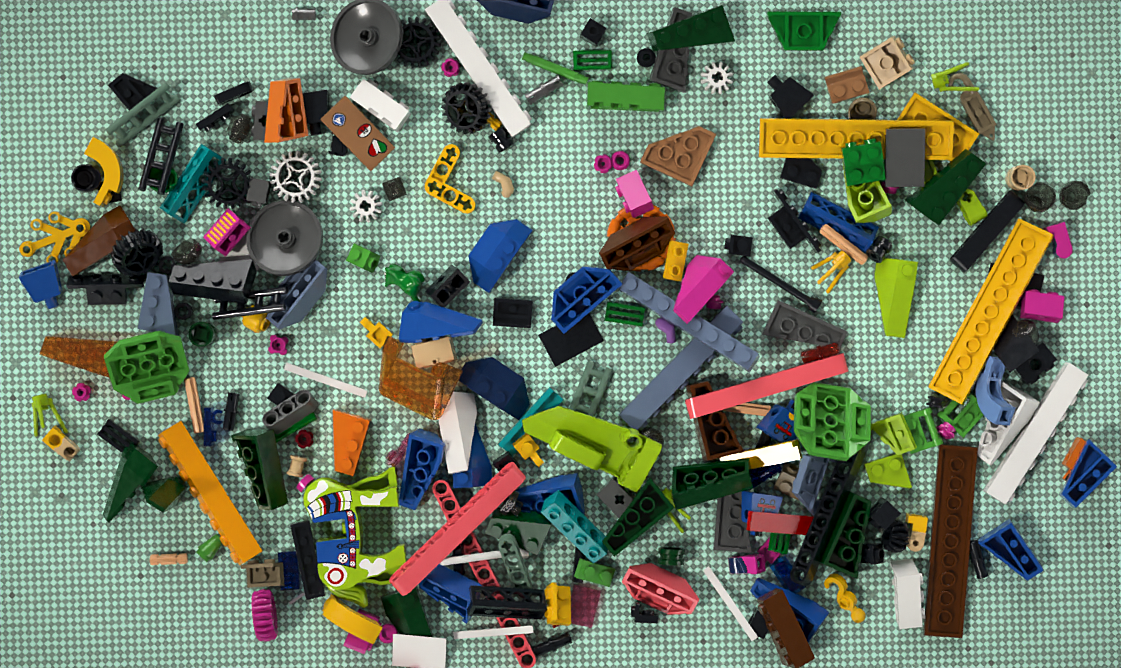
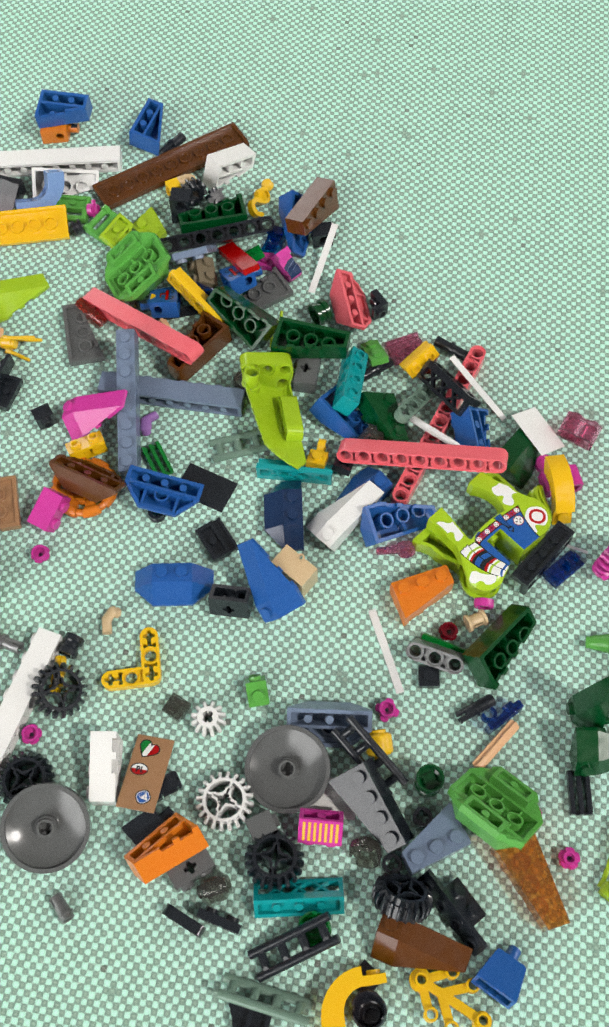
camera: 120 degrees left, 25 degrees down
(209, 492) = (557, 676): light orange brick -> none
(264, 574) = (583, 582): dark tan bracket -> none
(377, 333) = (313, 633): yellow plate -> none
(408, 282) = (249, 635): green animal -> none
(414, 387) = (334, 566): clear orange windscreen -> none
(615, 165) = (26, 539): dark pink plate -> none
(812, 303) = (56, 341): black piece -> none

